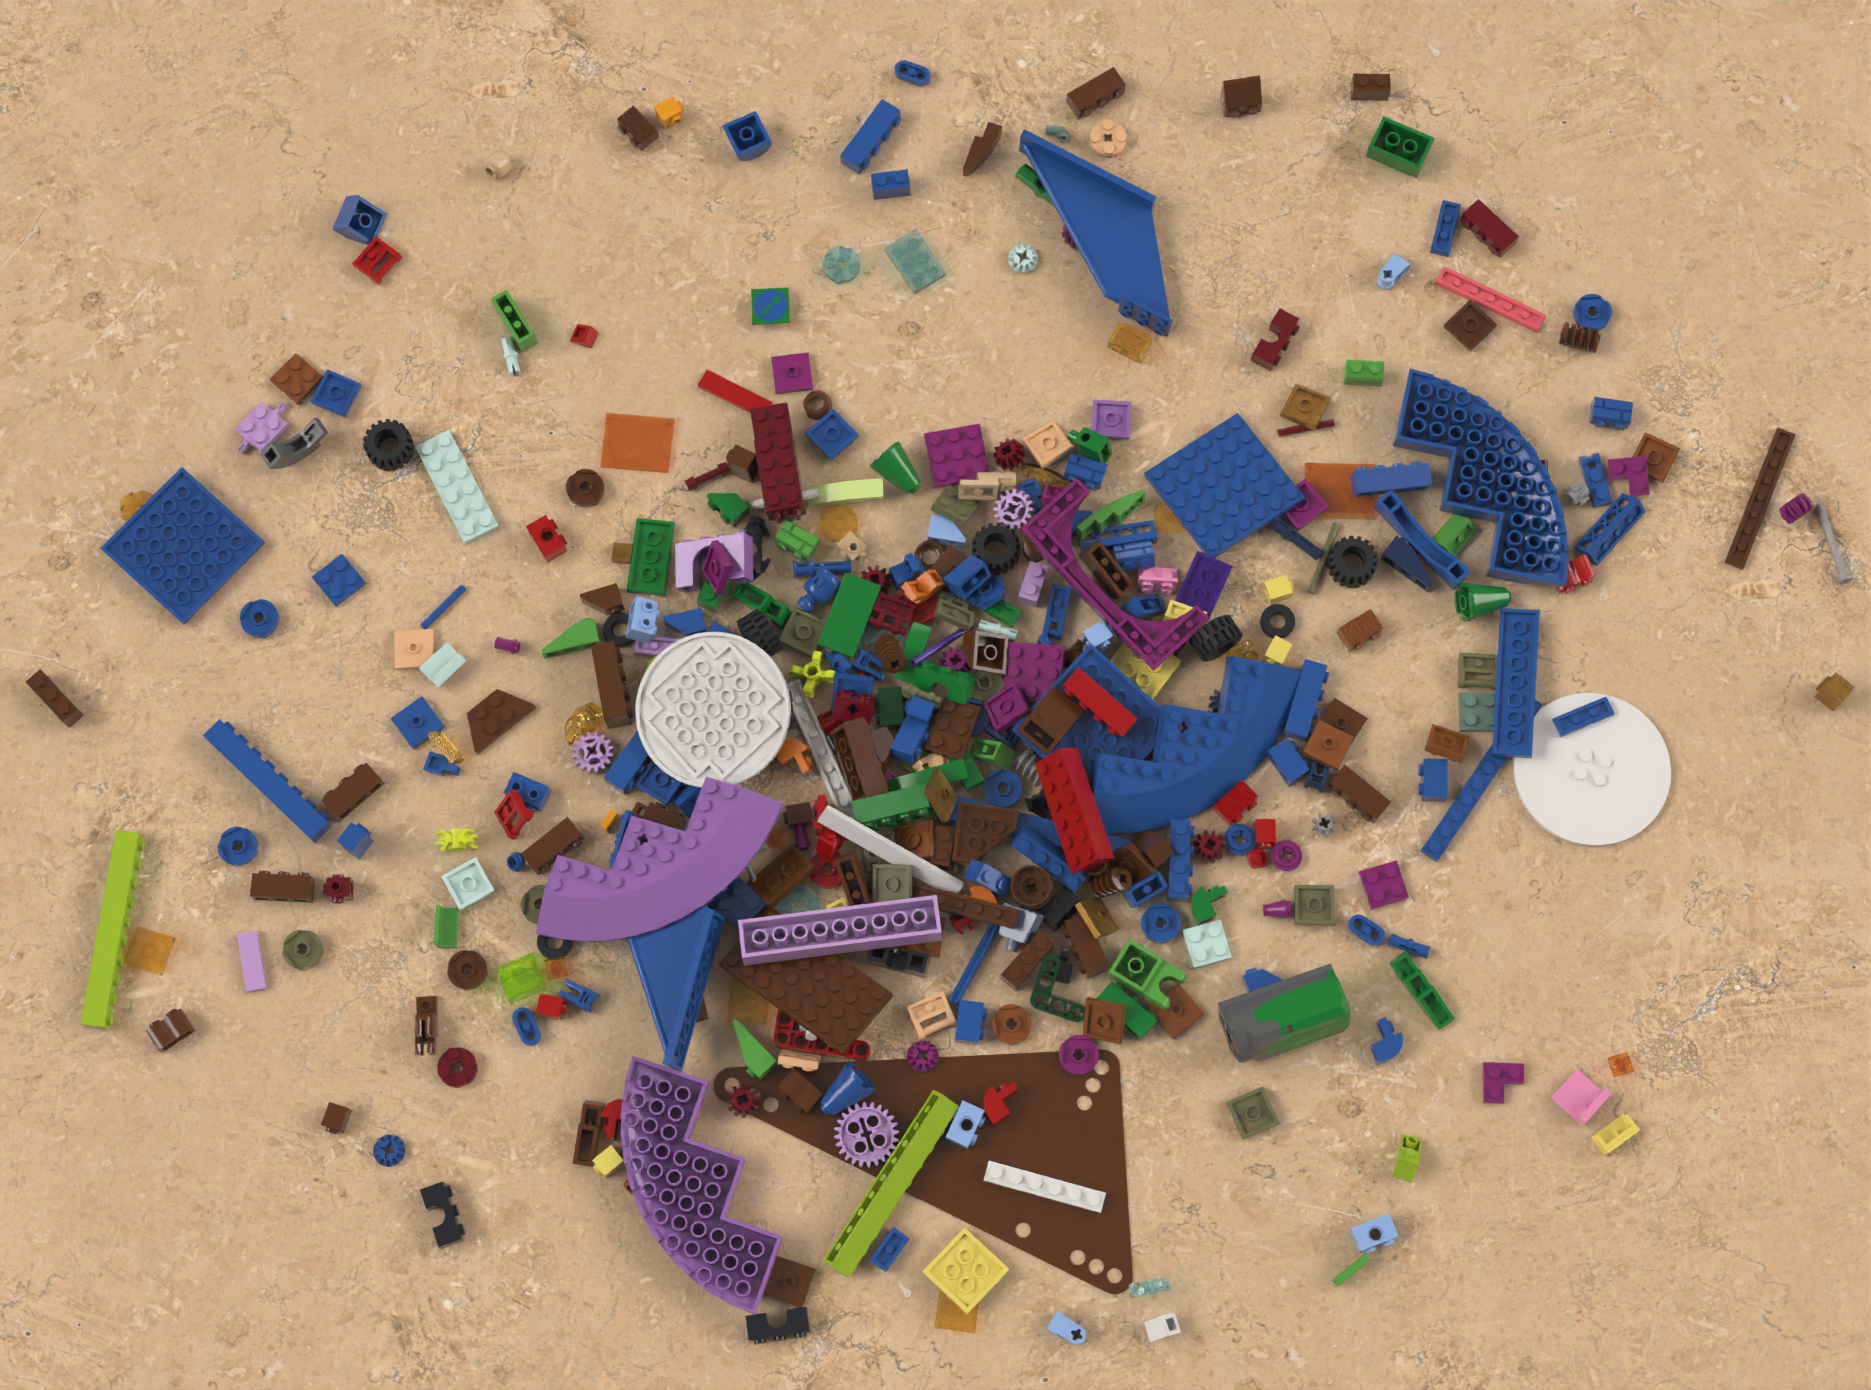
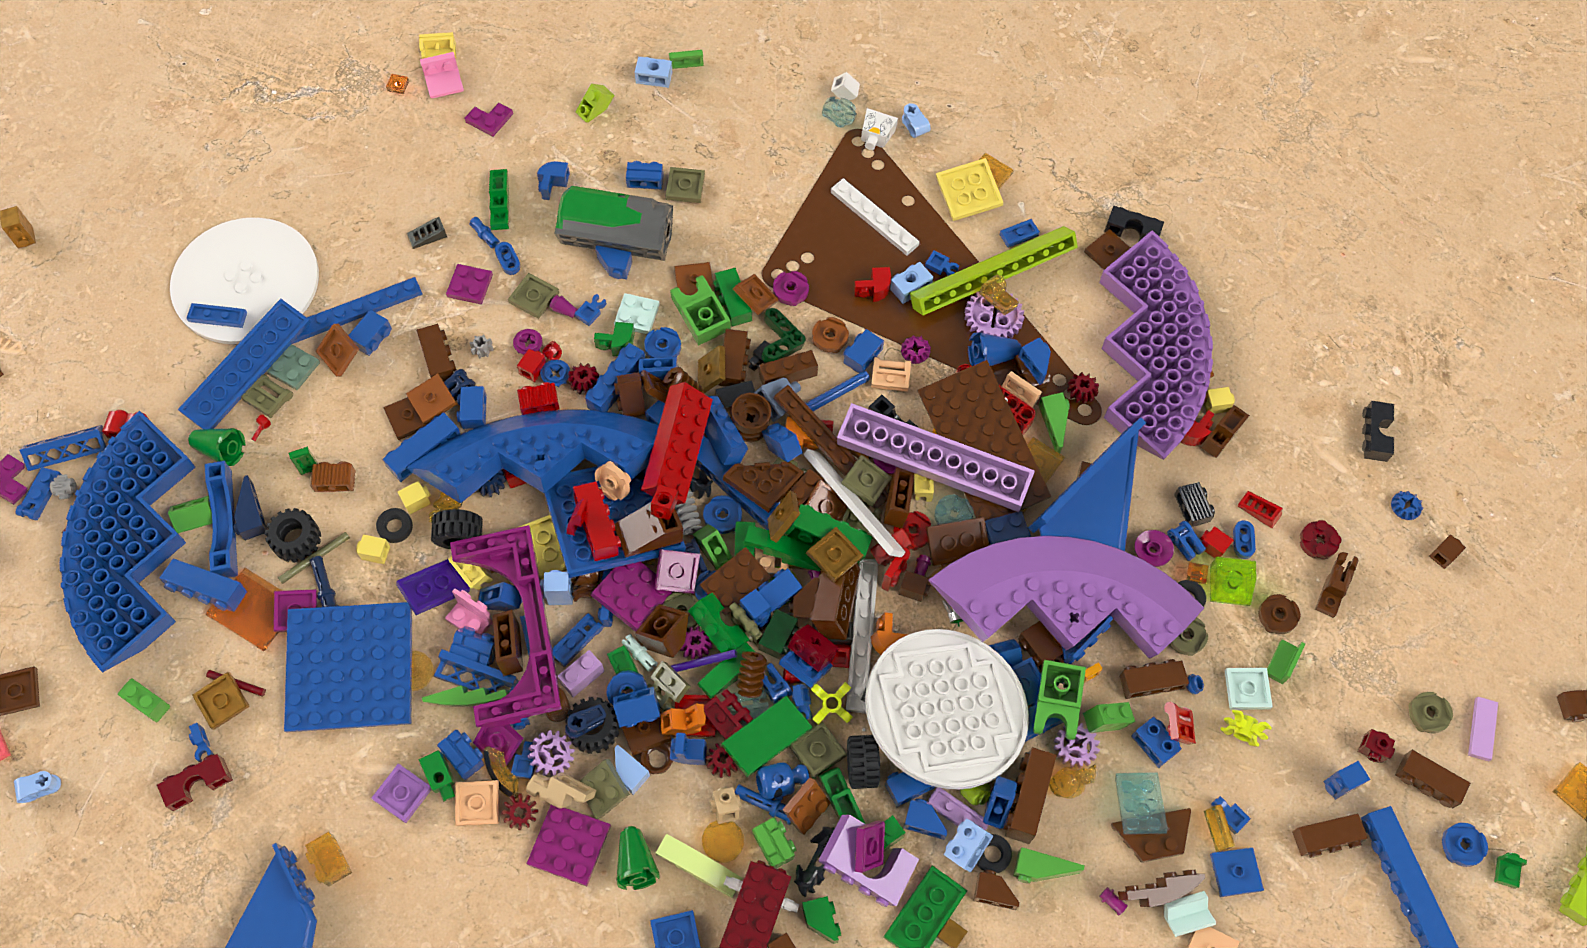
camera: 155 degrees left, 10 degrees down
(194, 845) = (1509, 869): none -> green bracket
(466, 674) = (1164, 890): none -> slope
(506, 1071) = (1262, 517): none -> red slope
(518, 730) = (1141, 803): none -> clear light blue plate
(575, 785) = (1108, 717): none -> bright green brick
(585, 1035) = (1194, 504): none -> black brick
(600, 961) = (1154, 540): none -> magenta dish
(621, 767) = (1060, 703): none -> bright green brick
(632, 664) = (1000, 802): none -> blue brick
(785, 578) = (806, 806): none -> dark orange plate
(798, 1094) = (1036, 358): none -> blue slope
(869, 1148) = (995, 293): none -> clear yellow plate
(875, 780) = (834, 554): none -> pearl gold plate
(951, 1164) = (938, 263): none -> blue plate
(997, 540) = (586, 719): none -> dark blue piece
(1042, 747) = (667, 496): none -> red brick
(1100, 1293) = (877, 129): none -> white torso
(1108, 744) = (613, 481): none -> light nougat plate
(1113, 691) = (577, 517): none -> red slope
(1251, 917) = (590, 311): none -> blue plate
(1296, 370) = (199, 738): none -> blue plate
(1299, 1099) = (644, 175): none -> blue brick
(1393, 626) = (303, 460): none -> green plate
(1454, 926) = (425, 228): none -> pearl dark grey slope
(1460, 646) = (263, 423): none -> red hand

